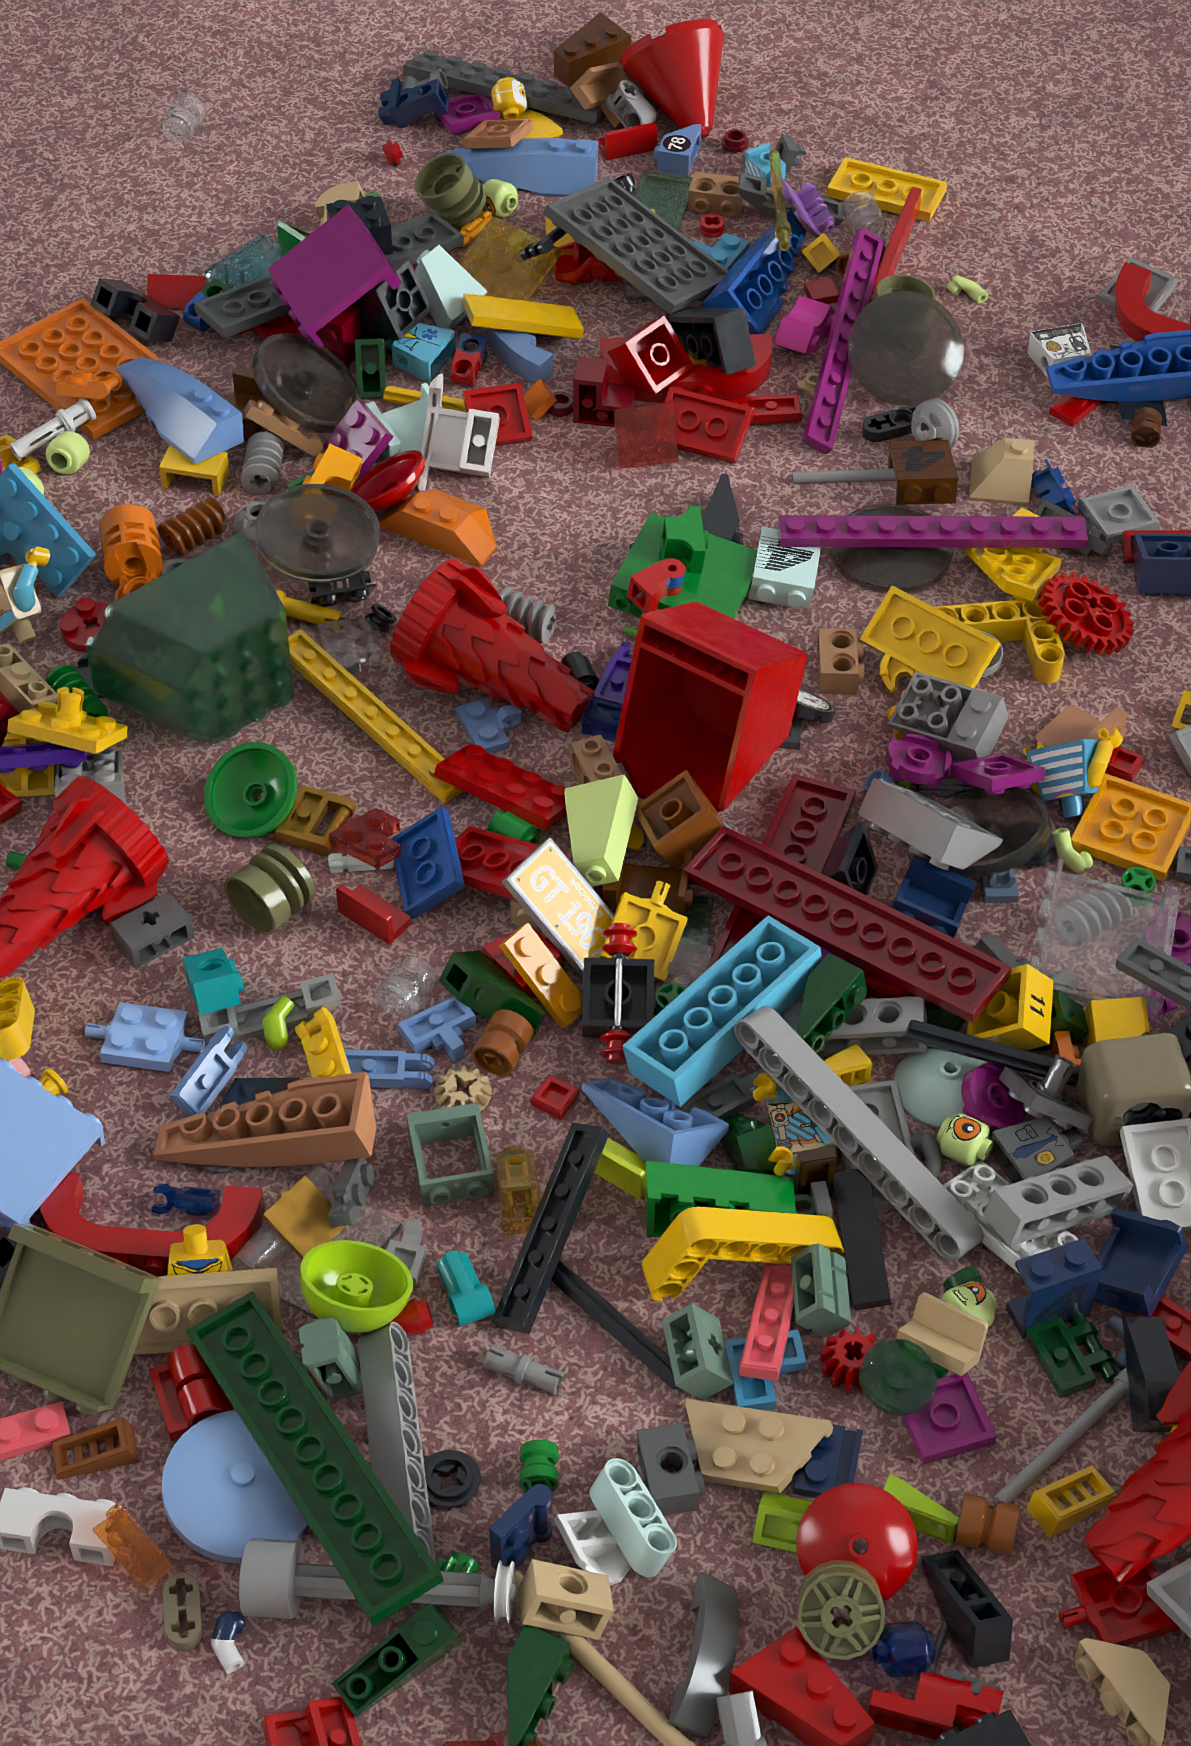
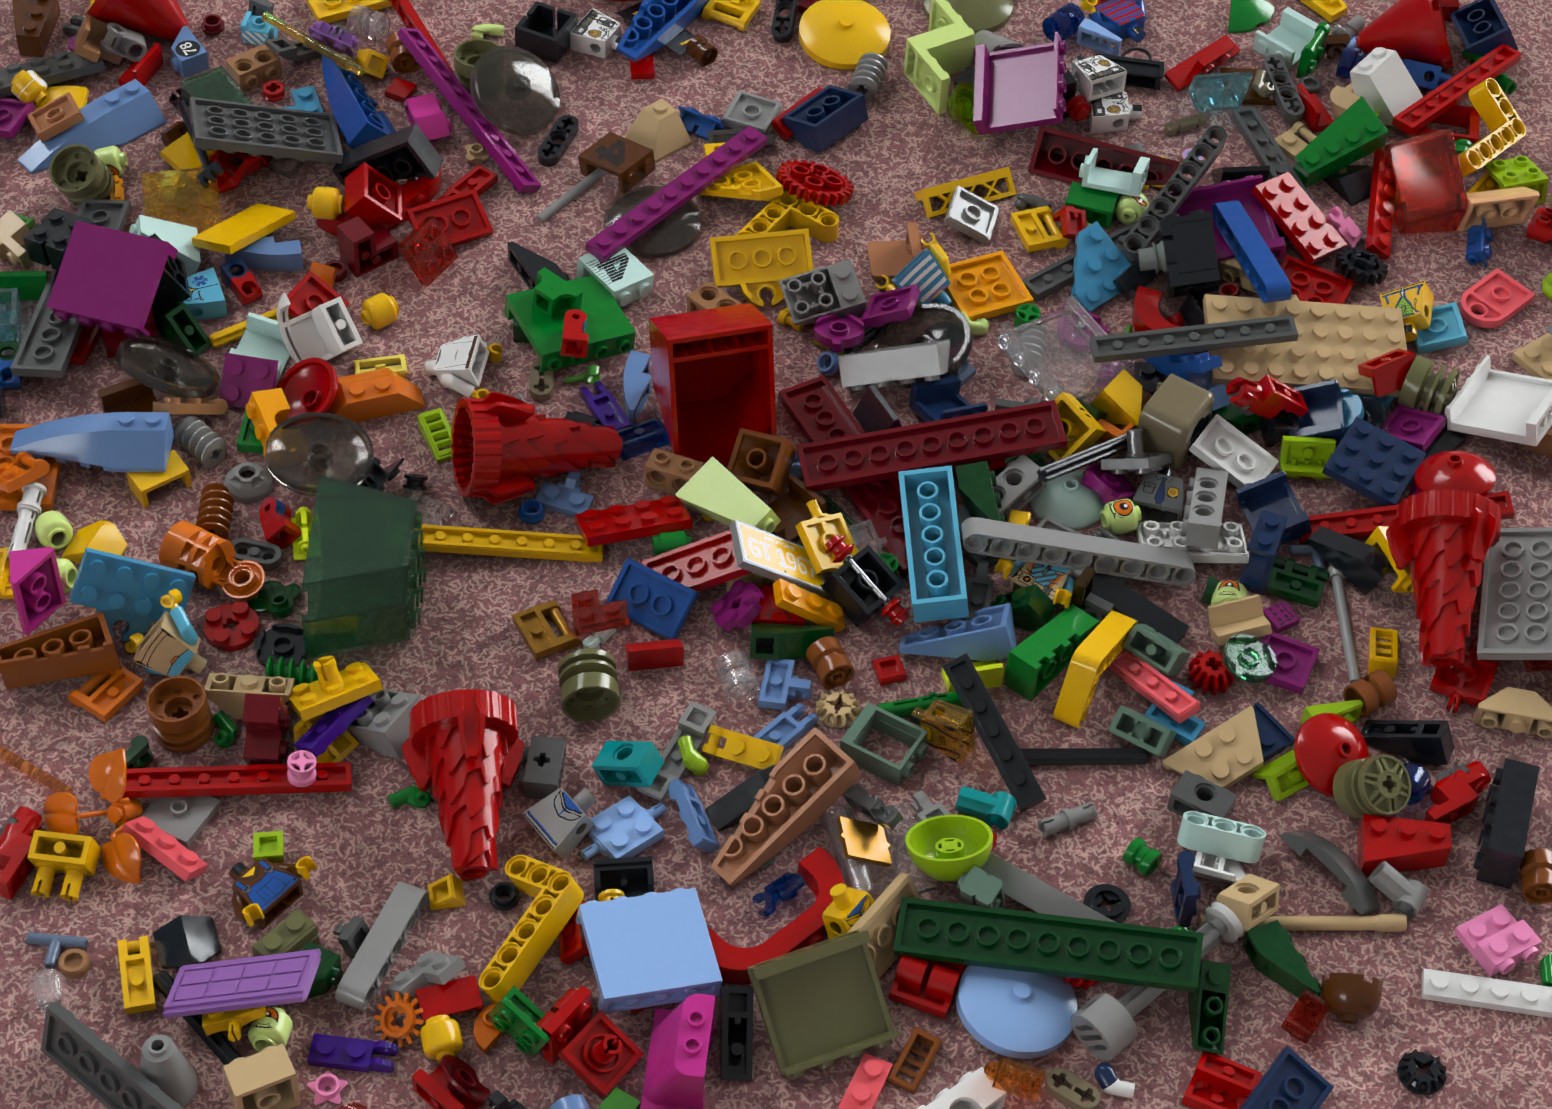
camera: 50 degrees left, 0 degrees up
(86, 491) = (97, 536): none -> yellow slope
(86, 1075) = (628, 874): none -> black hinge
(97, 983) = (562, 819): none -> light grey torso
(239, 780) = (486, 621): green dish -> none
(441, 715) = (529, 506): none -> blue plate
(485, 929) = (738, 606): none -> magenta plate
(496, 519) = (381, 362): none -> light yellow tile
(508, 1134) = (905, 707): none -> green pin
(543, 458) = (379, 311): none -> yellow head
(547, 548) = (462, 364): none -> white torso
(599, 610) = (536, 380): none -> dark tan beam
(605, 333) = (326, 203): none -> yellow head
(939, 419) = (587, 119): light grey piece -> none
(1007, 1373) = (1281, 617): none -> magenta tile
(1020, 316) = (539, 34): none -> black piece

